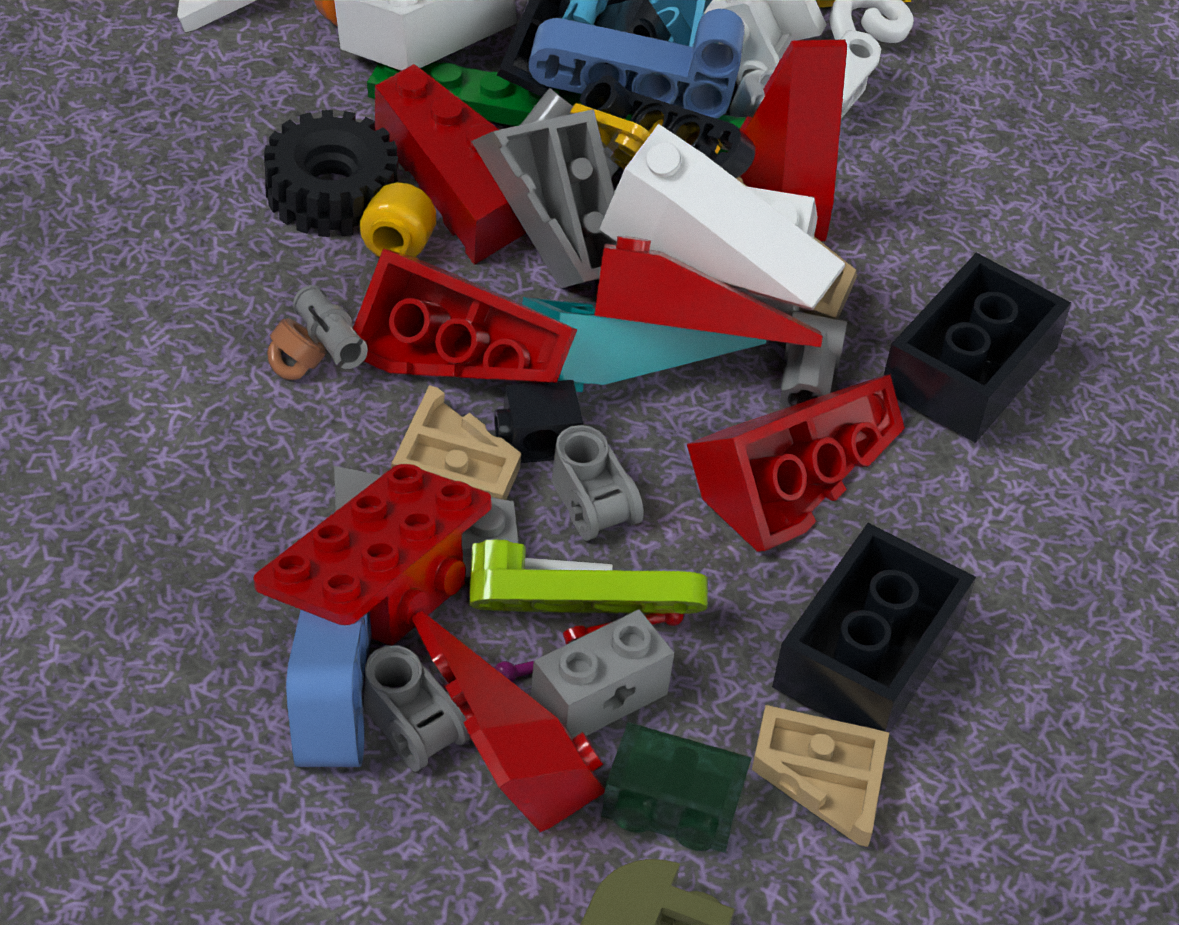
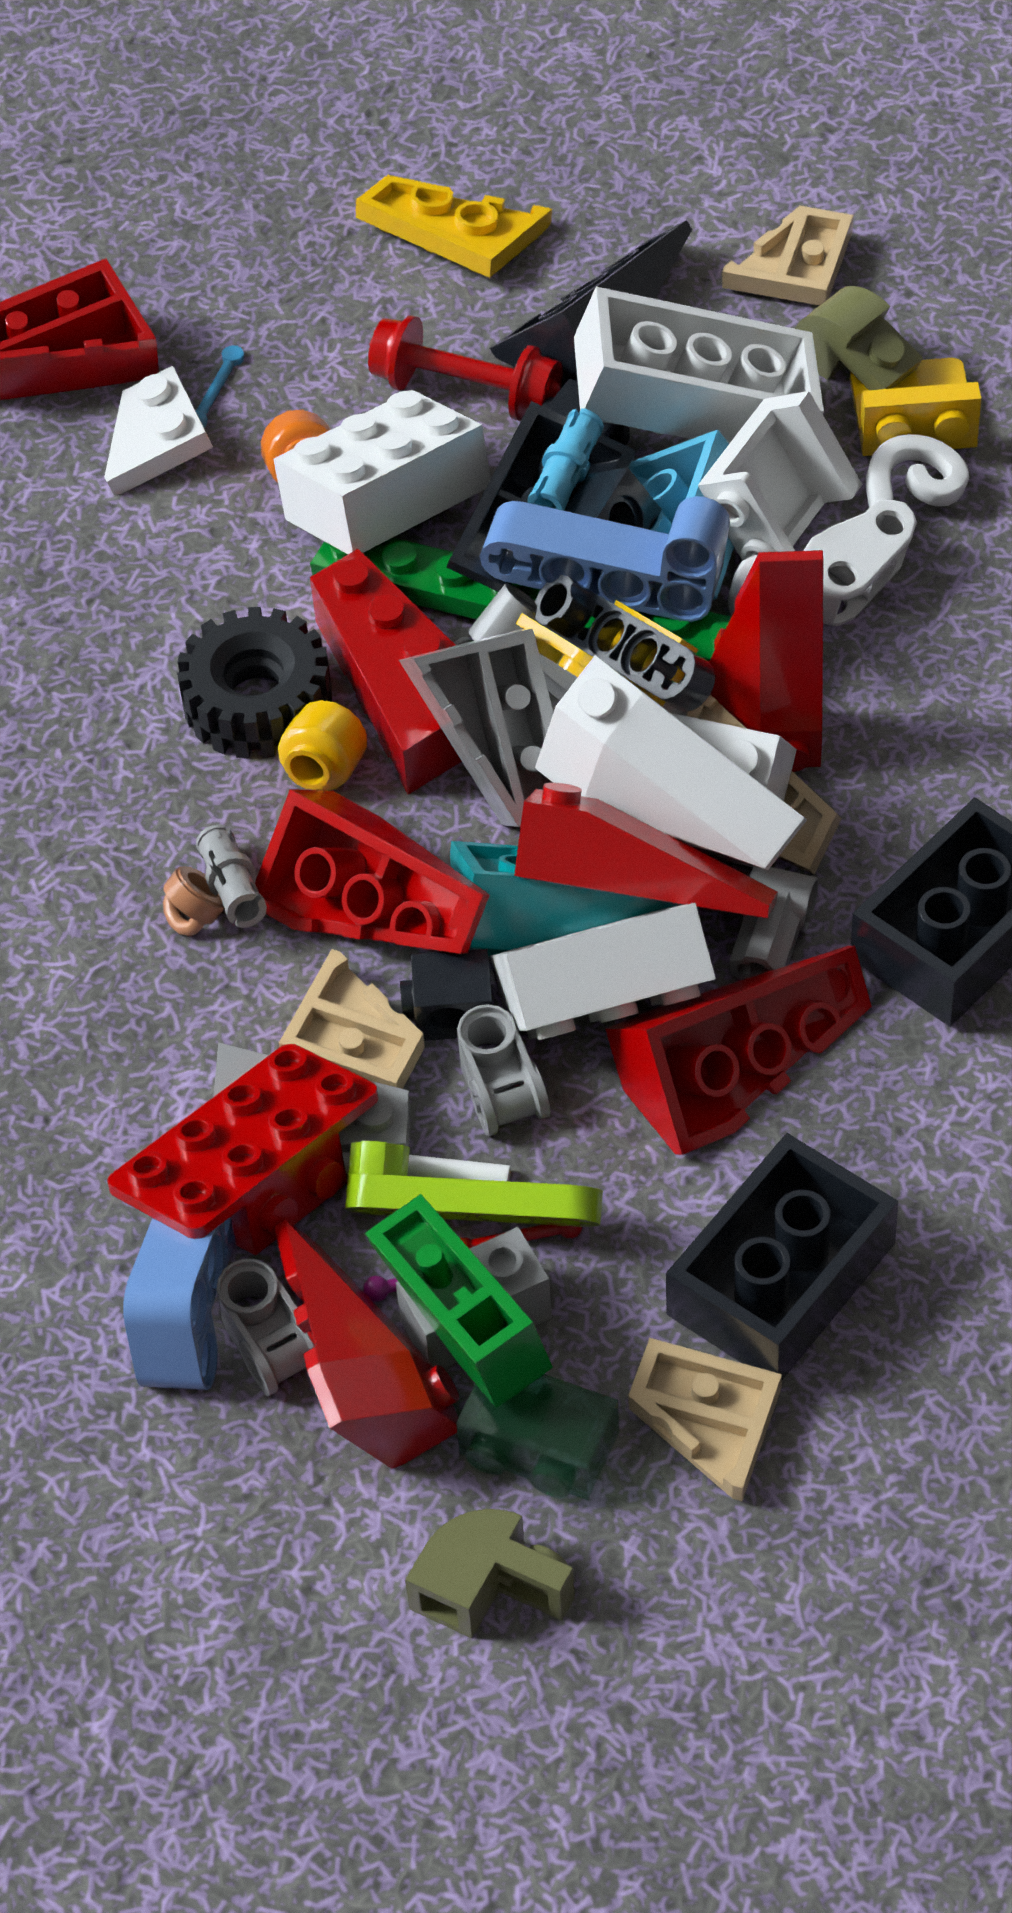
camera: 15 degrees right, 5 degrees up
(606, 671) = (461, 1301): none -> green slope
(682, 394) = (604, 971): none -> white brick

